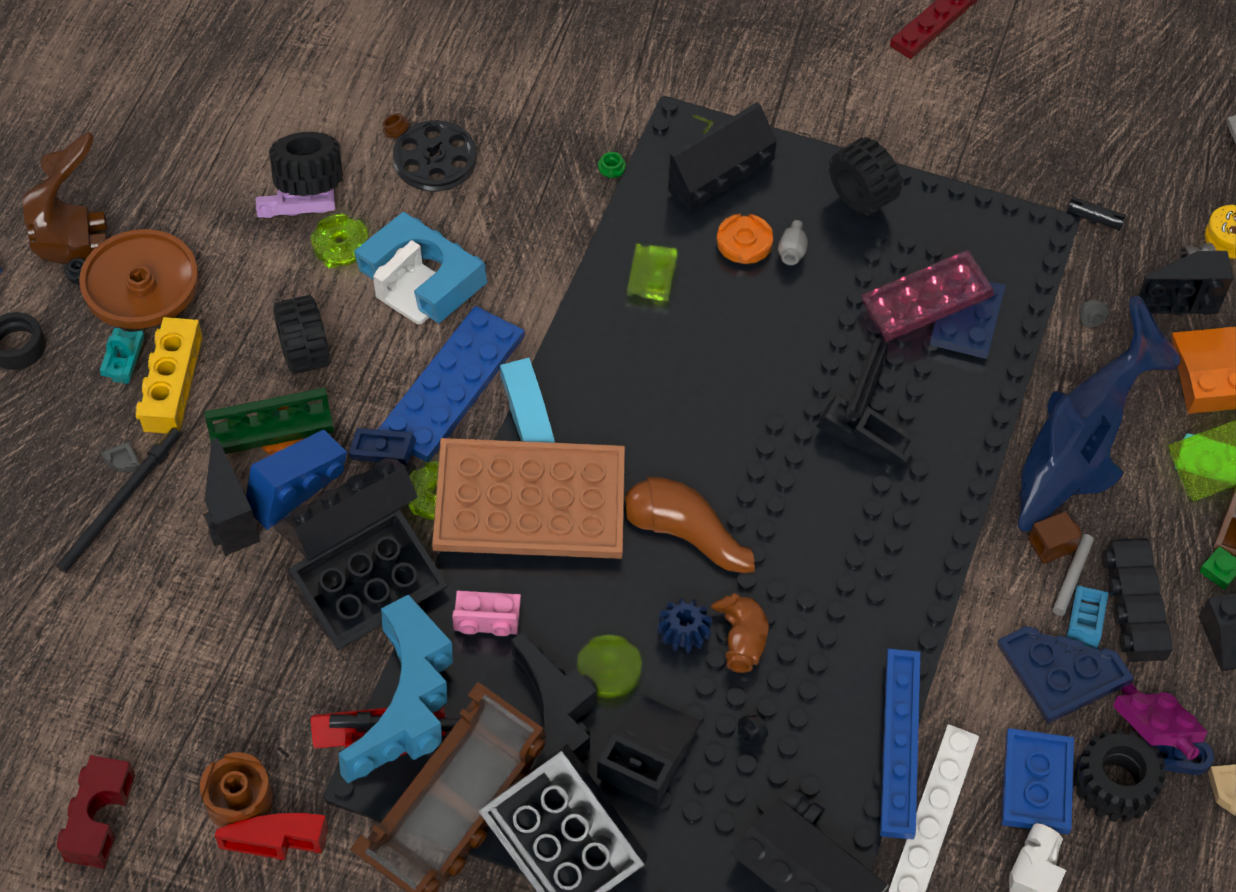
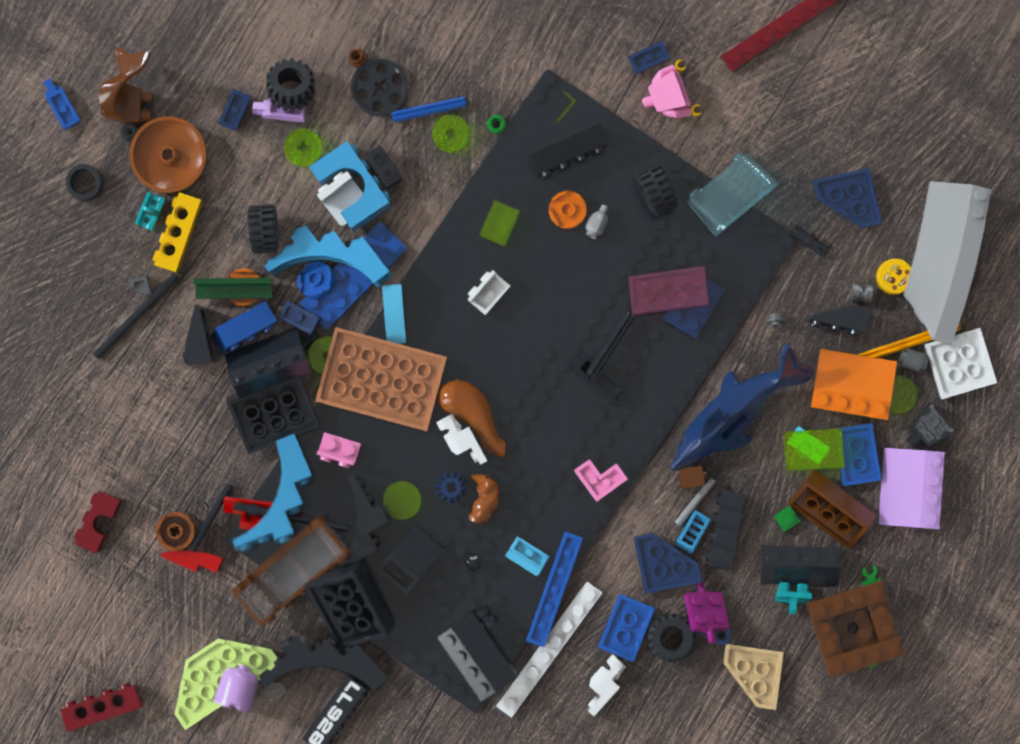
camera: 15 degrees right, 30 degrees up
(230, 215) = (234, 110): none -> dark blue plate
(290, 764) = (210, 517): none -> black bar
(396, 392) = (316, 280): none -> blue tile
(413, 343) = (331, 248): none -> dark azure arch
(466, 232) = (383, 167): none -> black brick
(510, 166) = (429, 109): none -> blue axle
(552, 175) = (460, 128): none -> clear neon green plate
(661, 352) = (488, 292): none -> white bracket
(682, 554) = (460, 440): none -> white plate
(795, 57) = (648, 57): none -> dark blue plate
(838, 706) = (527, 556): none -> medium azure slope
(841, 87) = (669, 93): none -> bright pink torso
(919, 572) = (597, 483): none -> bright pink plate
(968, 173) = (731, 193): none -> clear light blue windscreen
(1131, 154) = (850, 196): none -> dark blue plate

